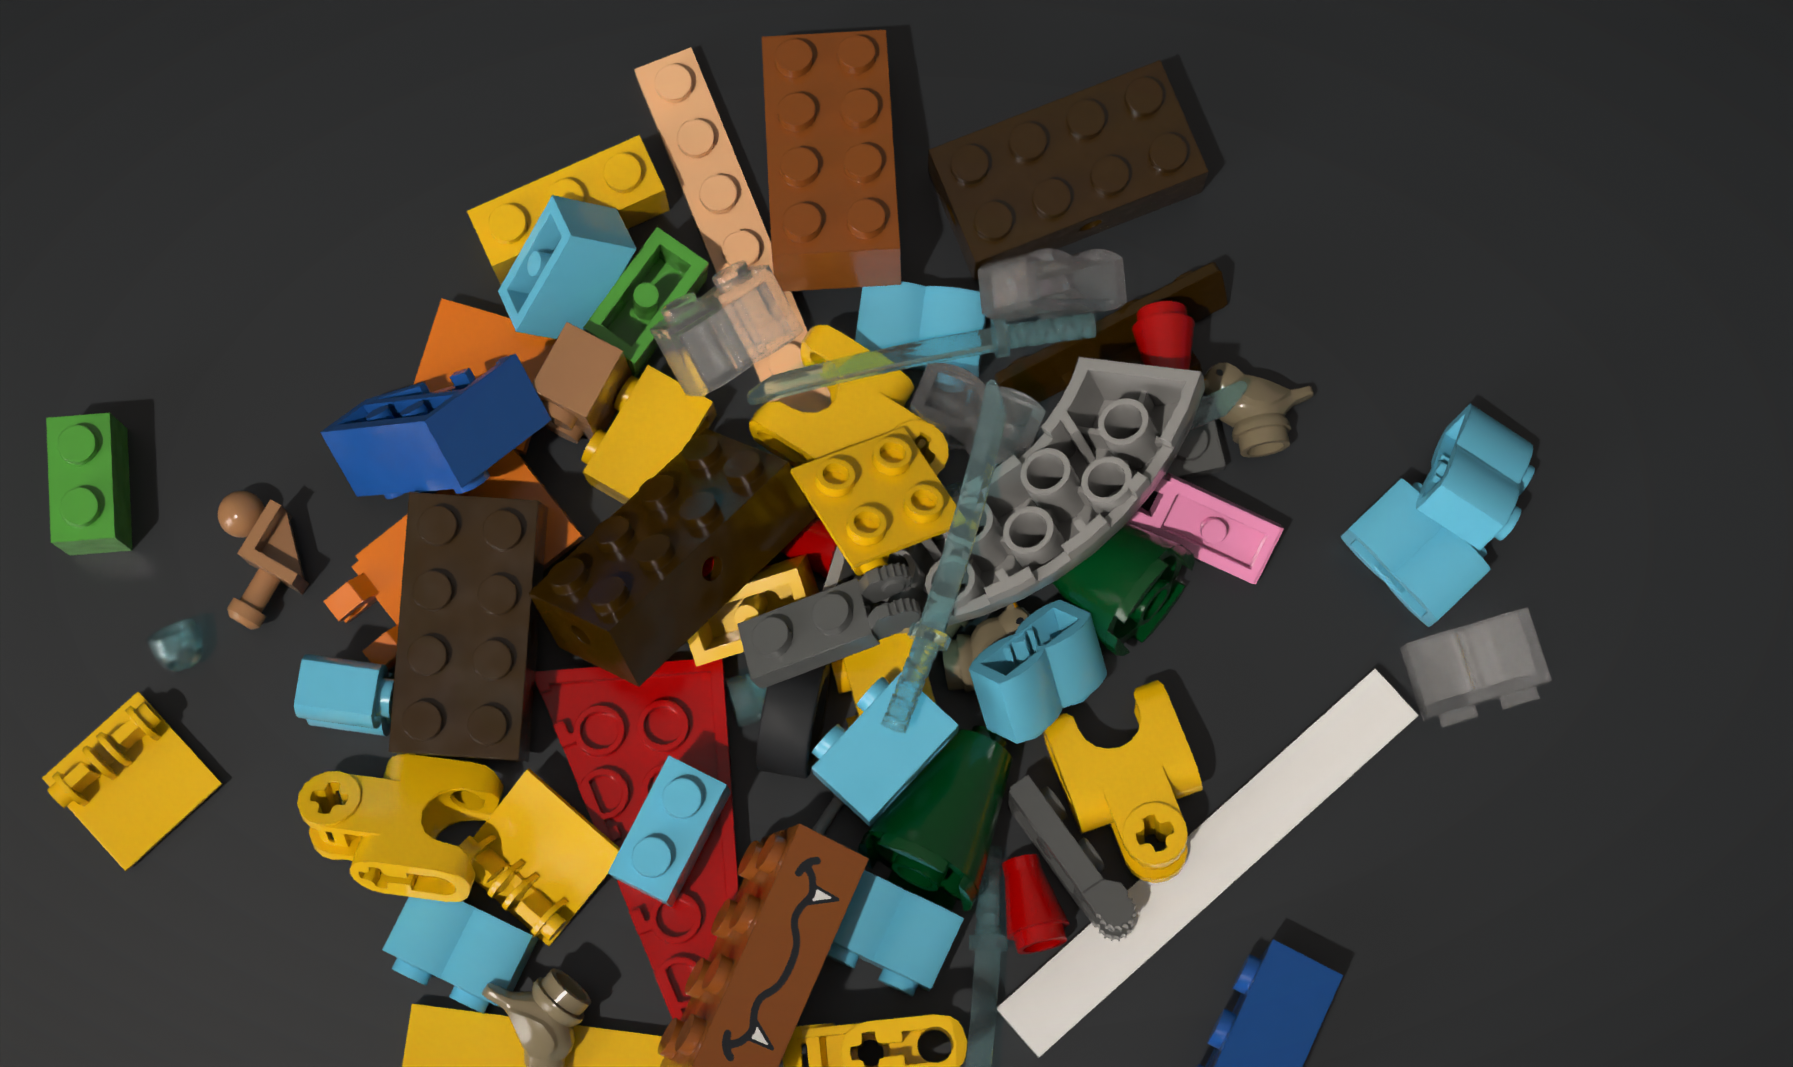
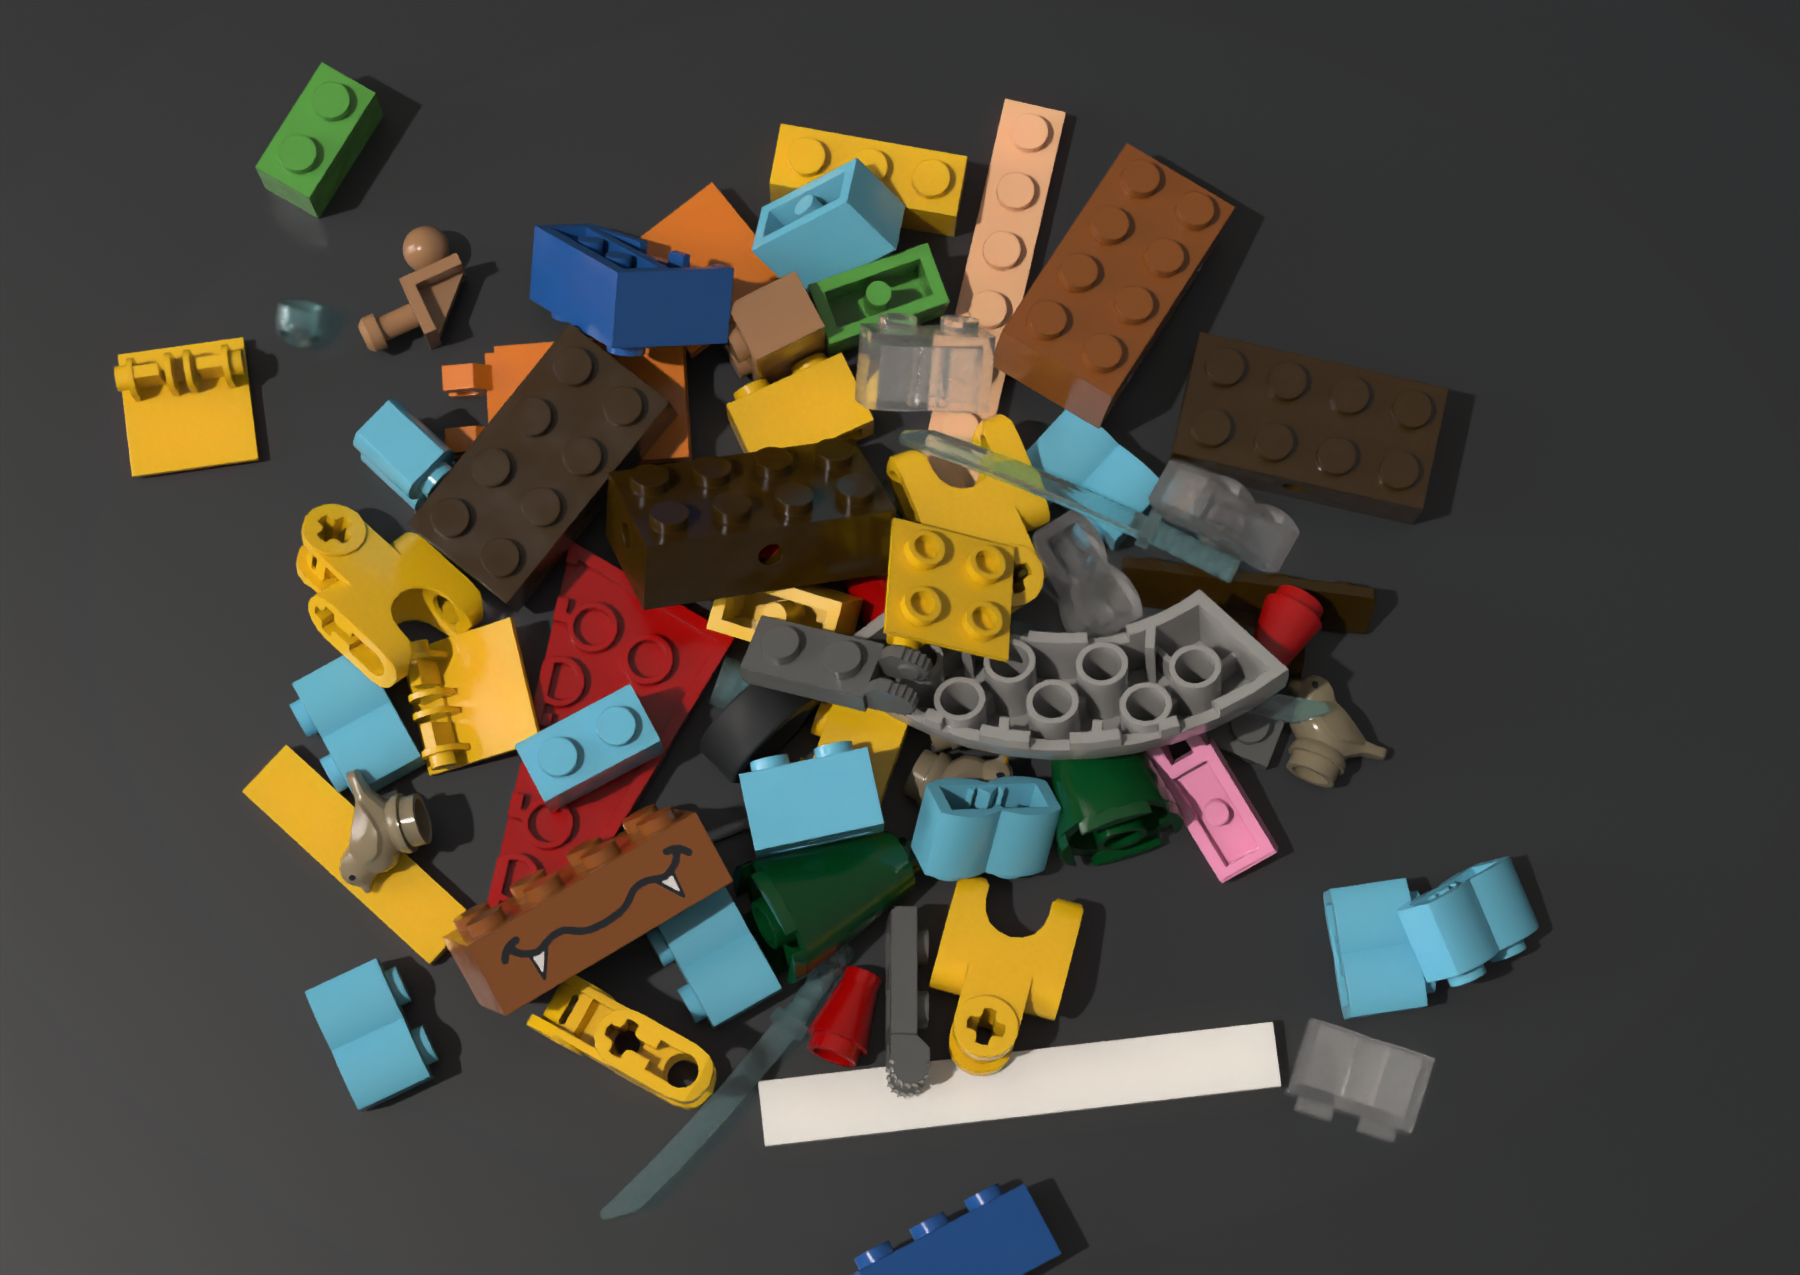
camera: 30 degrees right, 0 degrees up
(930, 632) = (912, 729): clear light blue sword -> none

